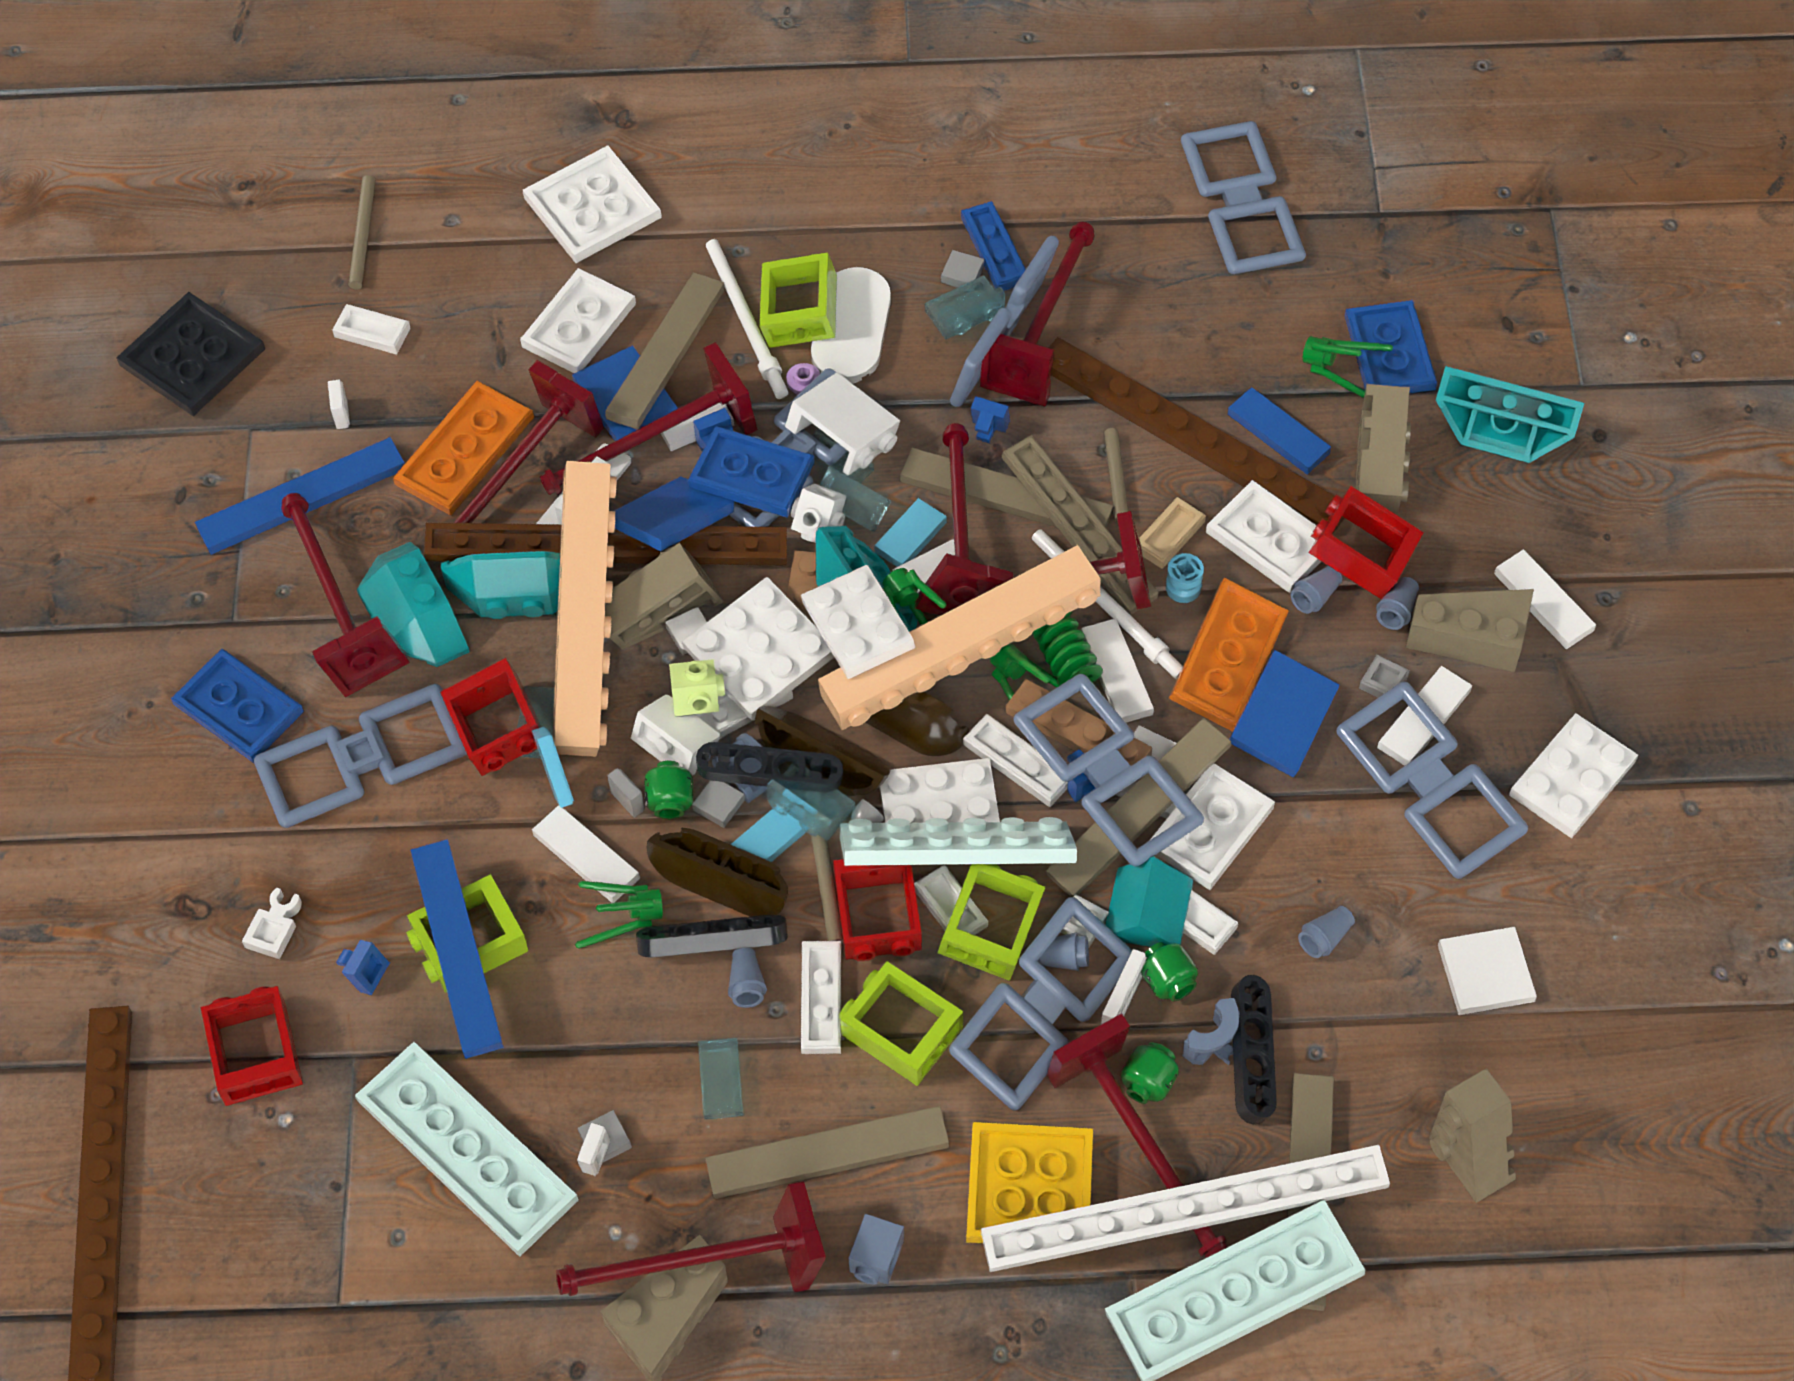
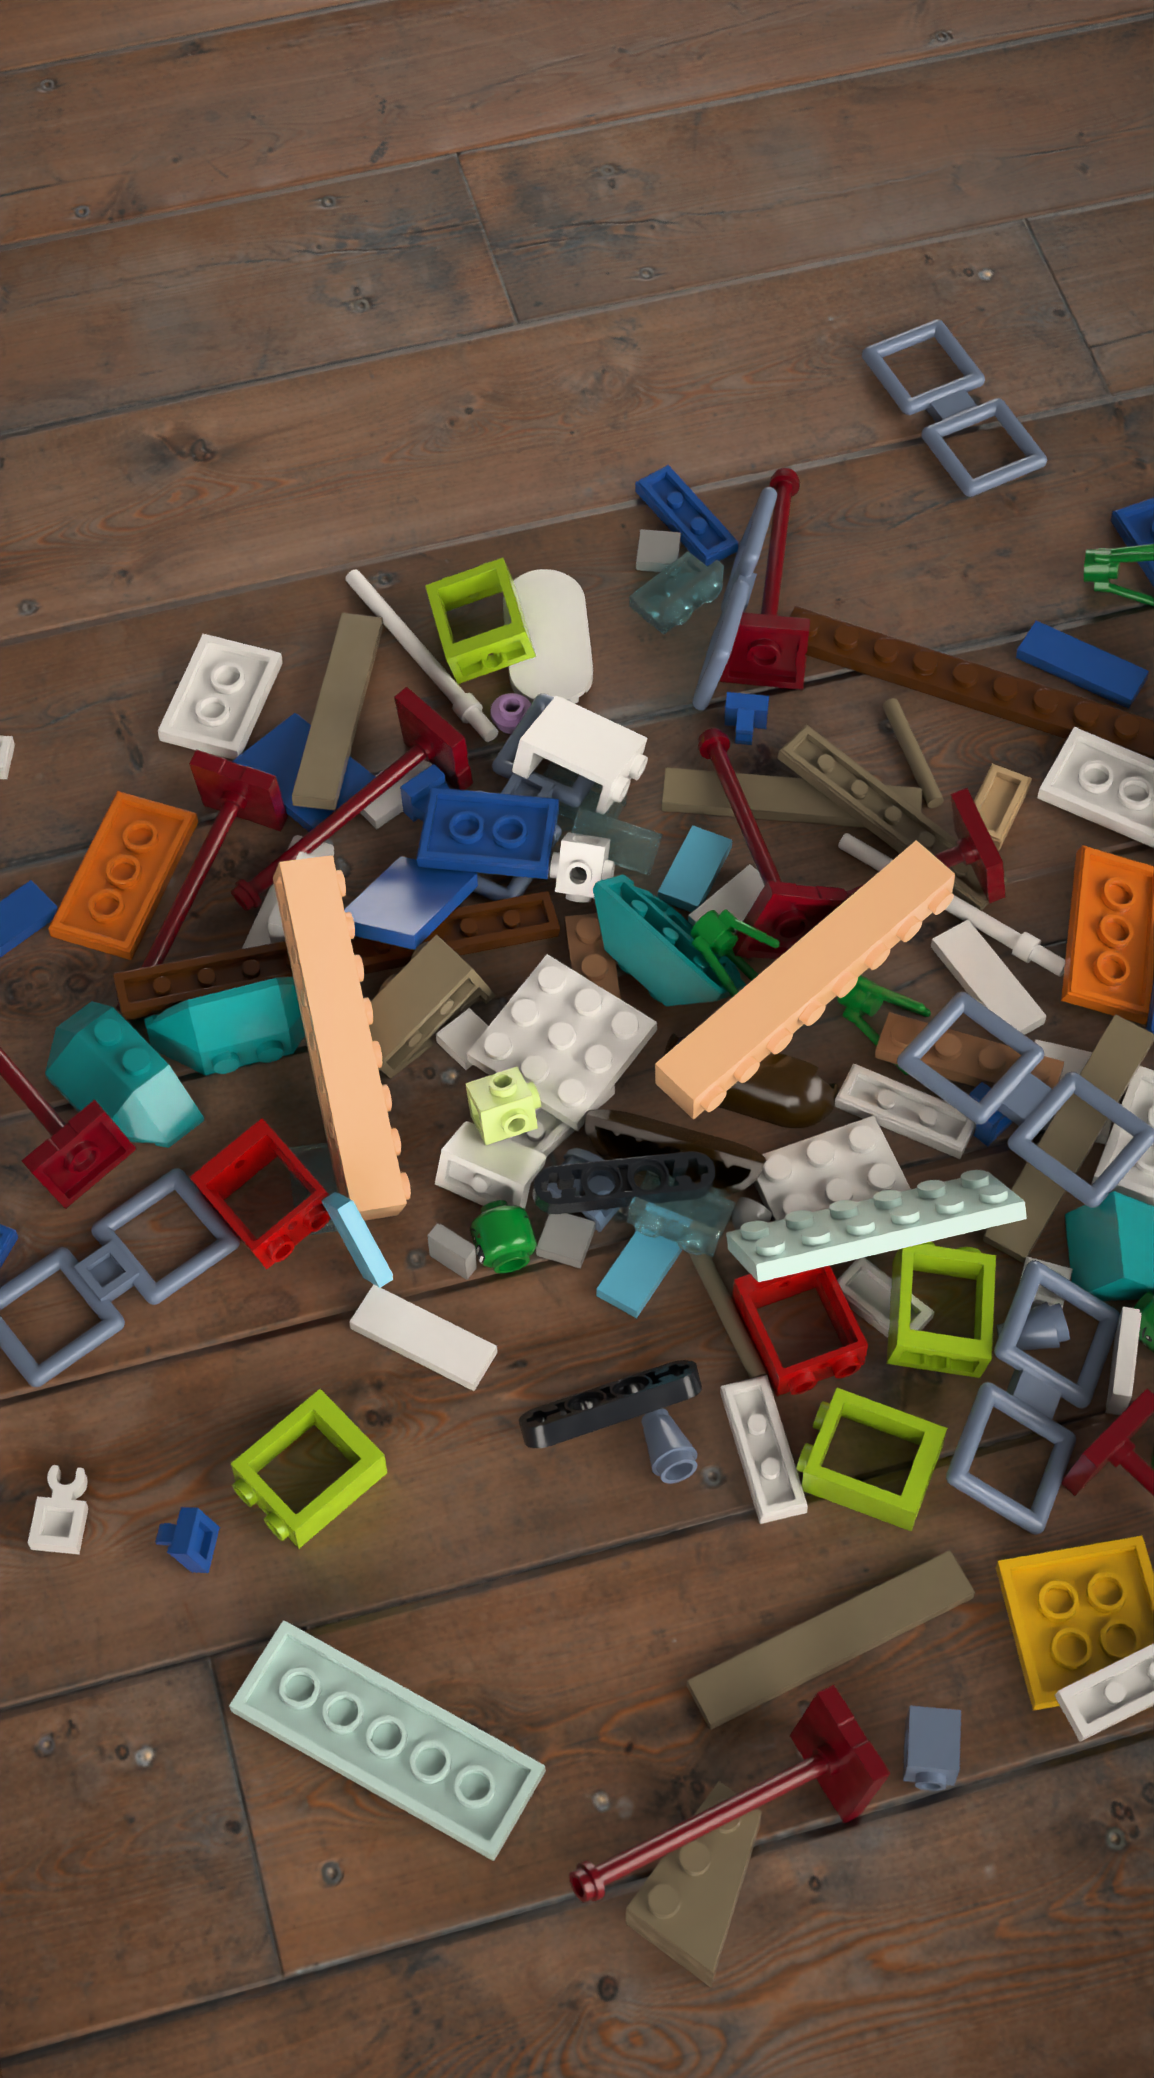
camera: 15 degrees left, 0 degrees up
(261, 1078) = (101, 1712): red window -> none
(456, 949) = (309, 1492): blue tile -> none
(592, 204) = (195, 555): white plate -> none
(593, 1149) = (552, 1704): white tile -> none
(618, 1139) = (554, 1685): light grey tile -> none
(643, 905) = (515, 1386): green plant -> none
(718, 872) = (597, 1324): dark brown brick -> none
(720, 1078) = (673, 1577): clear light blue tile -> none
(858, 621) = (682, 984): white plate -> none
(1067, 651) = (925, 973): green piece -> none
(1184, 578) = (1033, 855): medium azure wheel -> none

